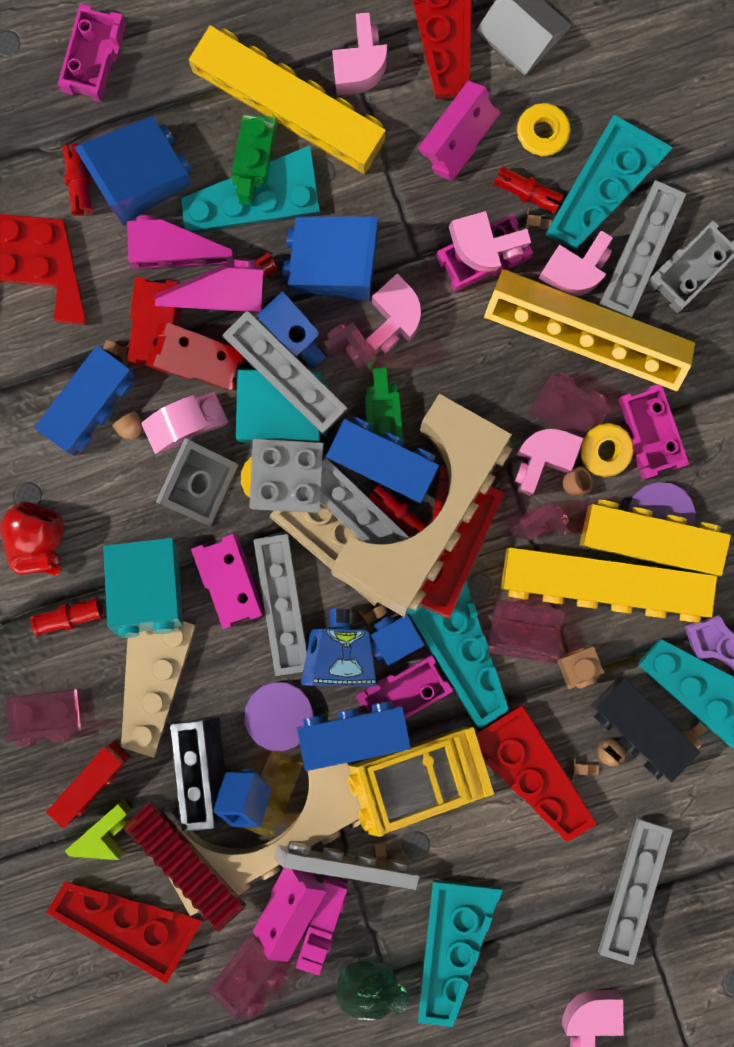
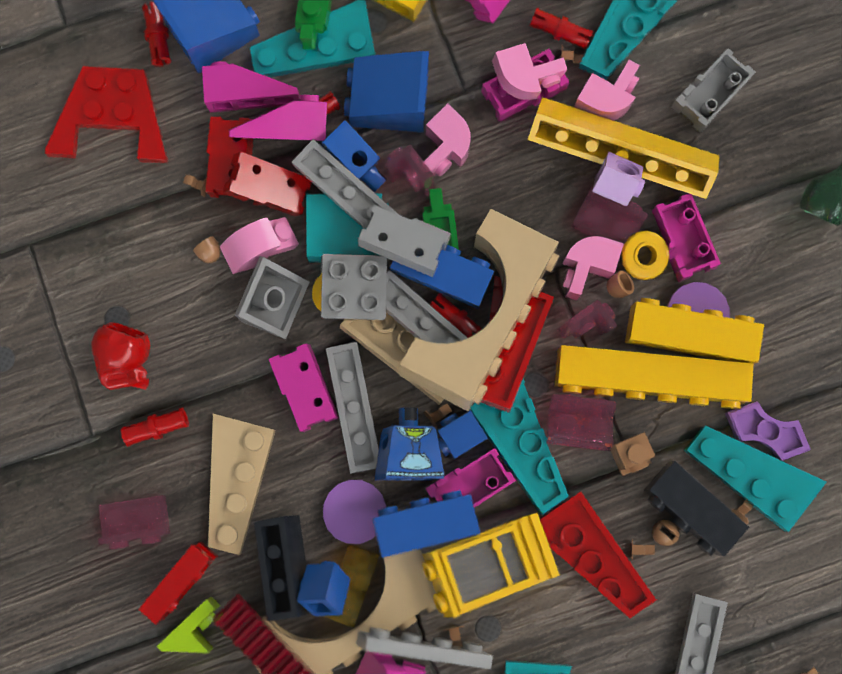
camera: 10 degrees left, 5 degrees down
(86, 401) = (168, 229): blue brick -> none
(143, 587) = (224, 395): teal brick -> none
(342, 429) = (404, 240): none -> light grey piece
(582, 367) = (619, 179): none -> lavender brick
(642, 249) = (666, 76): light grey plate -> none

